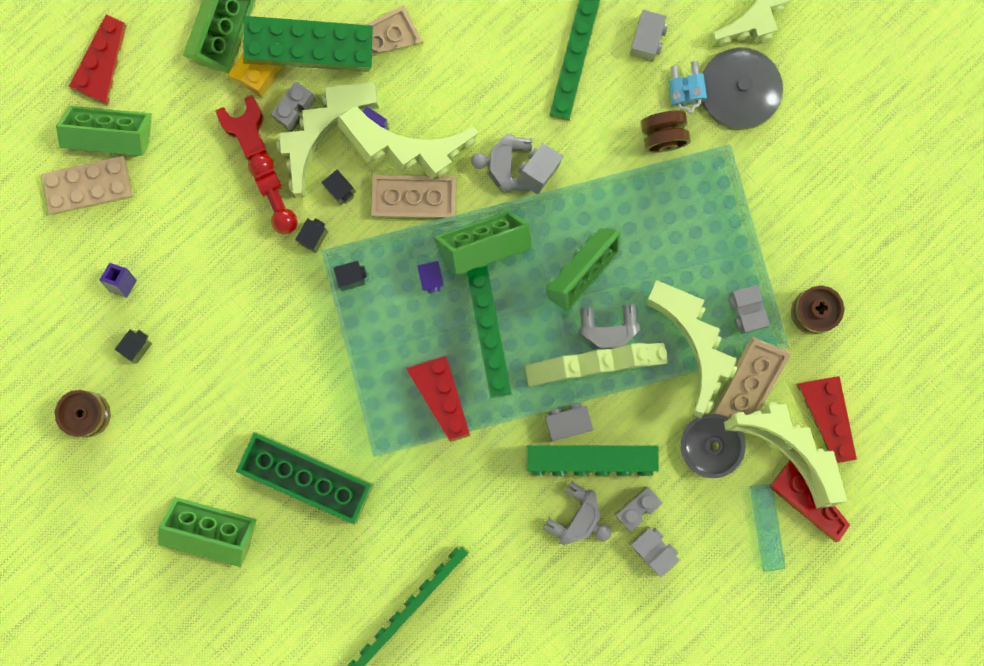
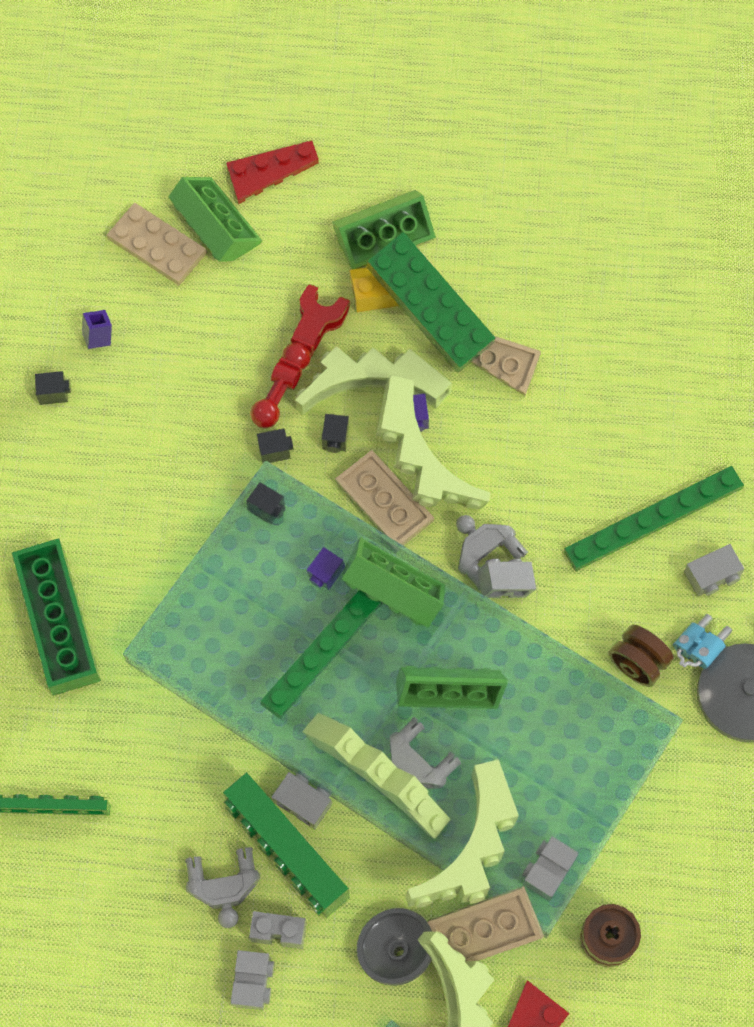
camera: 50 degrees right, 15 degrees down
(294, 101) = (364, 337): light grey brick -> none
(441, 395) = (227, 666): red wing -> none

